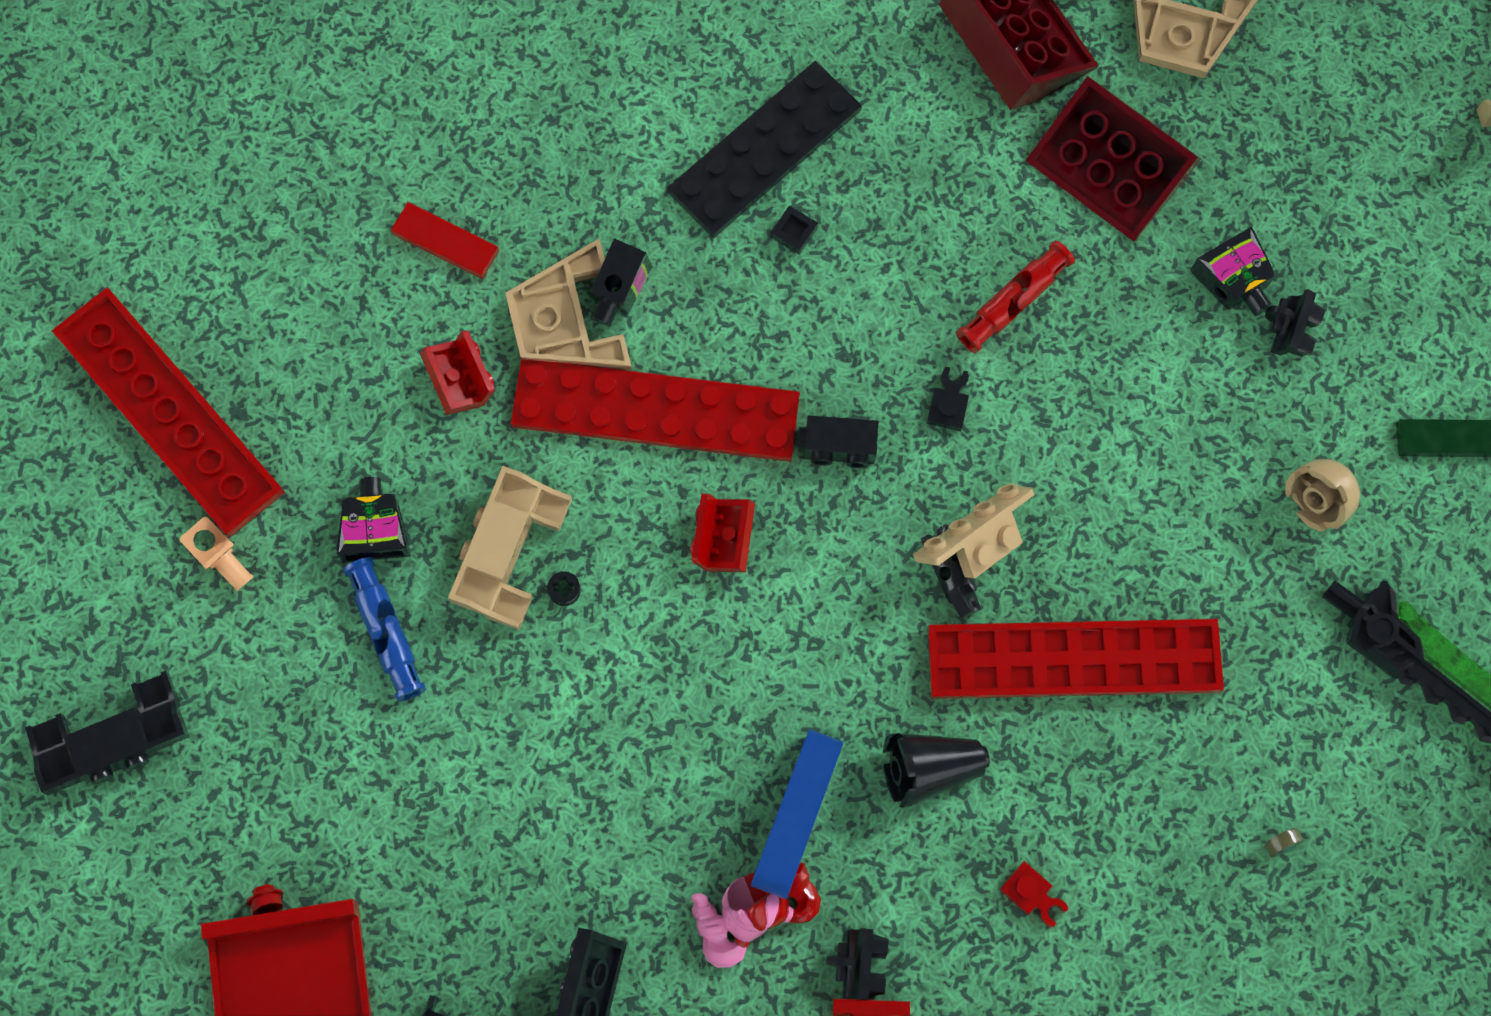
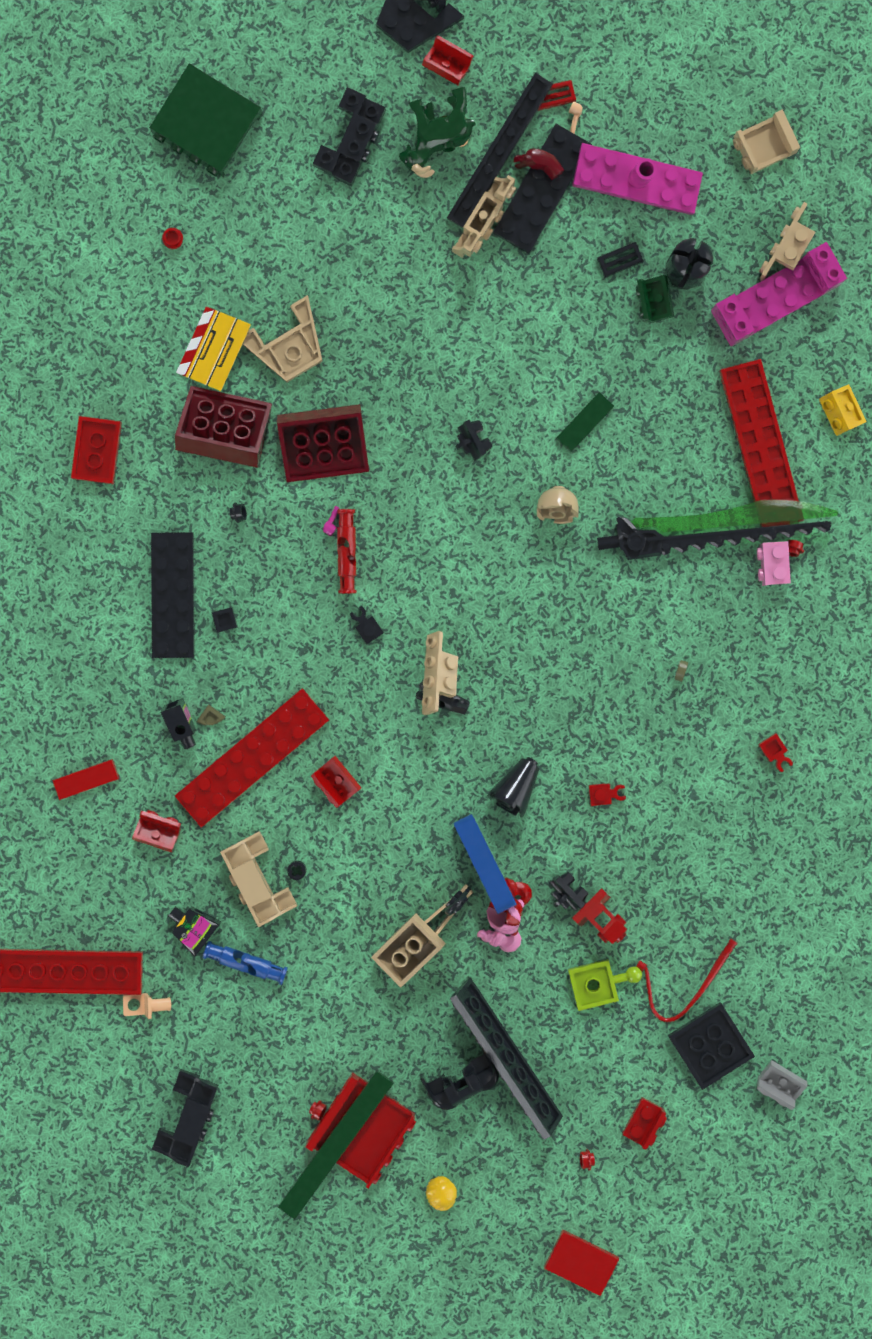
camera: 45 degrees left, 15 degrees up
(237, 965) = (335, 1144): none -> dark green tile
(550, 317) = (167, 766): tan wing -> none
(610, 817) = (416, 942): none -> tan slope
(659, 317) = (210, 716): none -> olive tile
(839, 440) = (336, 696): black brick -> none
(936, 135) = (238, 512): none -> black plate
(1022, 252) = (329, 528): none -> dark pink hand
(1074, 658) = (527, 682): red plate -> none
(1237, 272) = (427, 441): torso -> none

